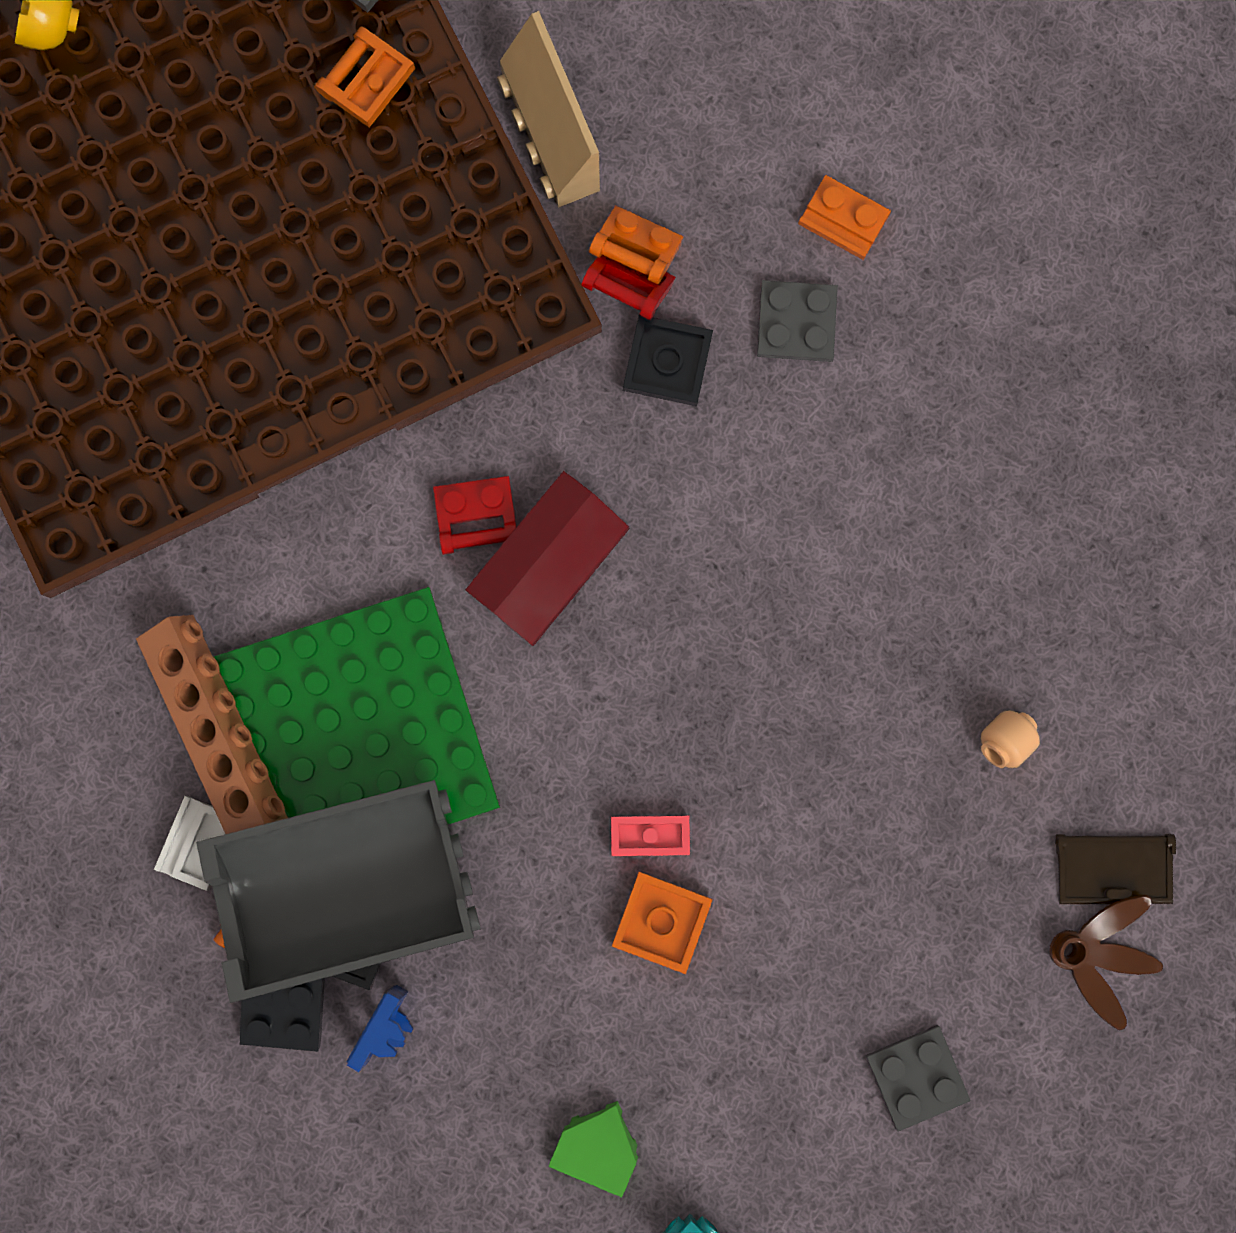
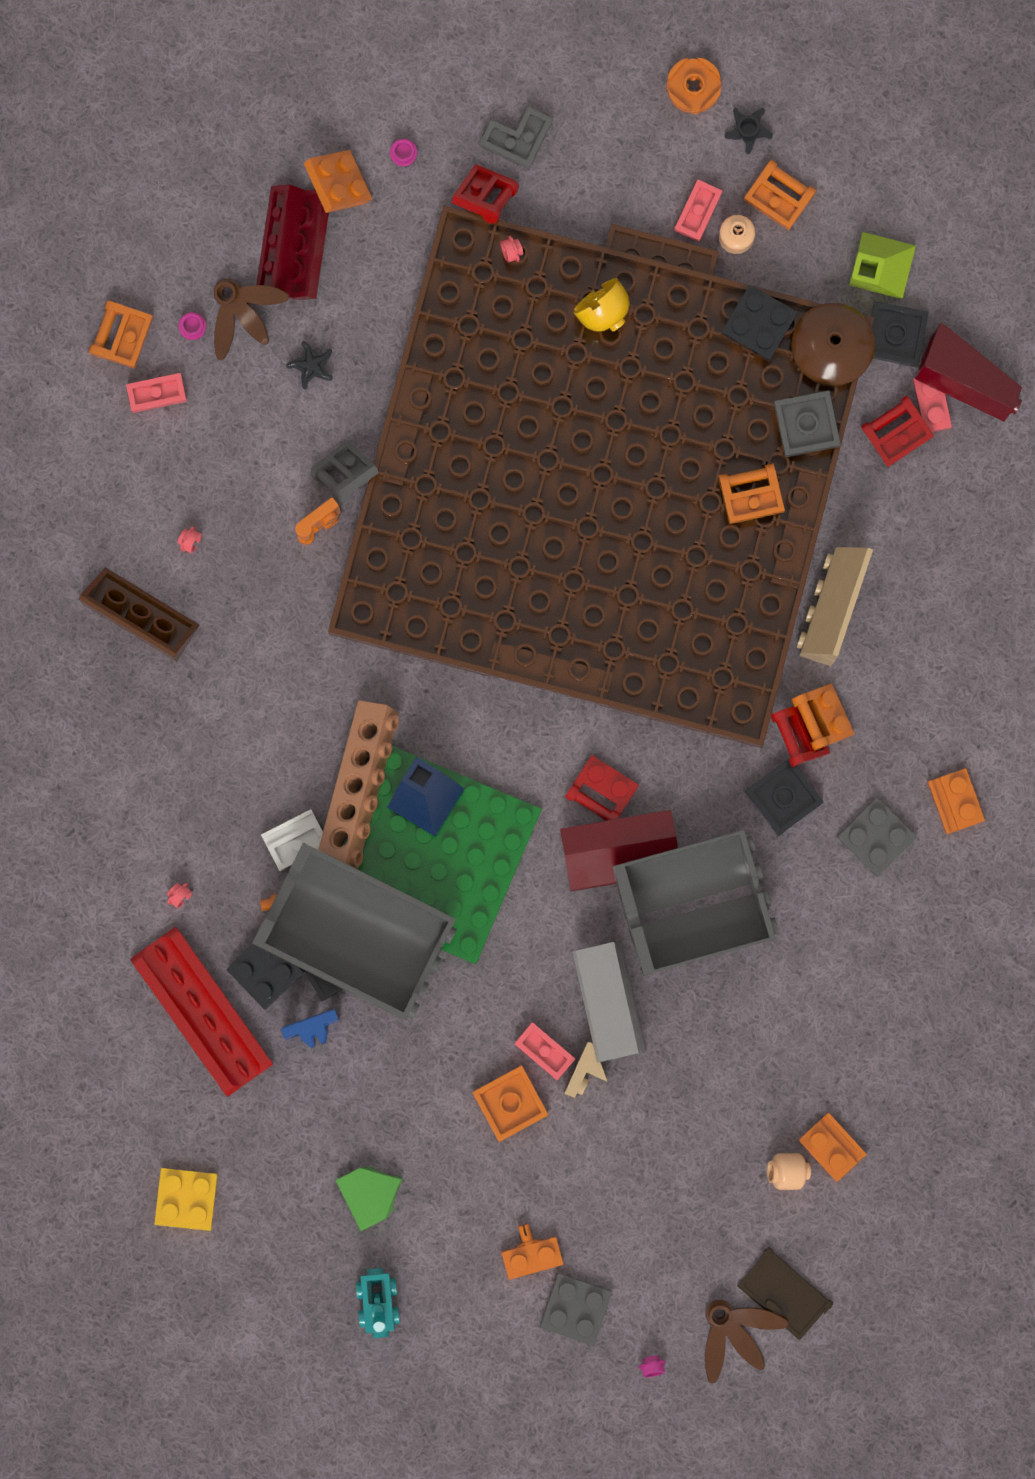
camera: 40 degrees right, 0 degrees up
(117, 1009) = (177, 894): none -> coral plate
(251, 1113) = (201, 1011): none -> red plate
(292, 677) = (425, 796): none -> dark blue slope
(641, 522) = (687, 876): none -> dark grey cylinder
(672, 726) = (609, 1001): none -> light grey slope
(706, 809) = (586, 1064): none -> tan slope
(821, 1062) = (531, 1255): none -> orange plate
(1030, 675) = (832, 1147): none -> orange plate
(1049, 1067) = (652, 1366): none -> dark pink plate

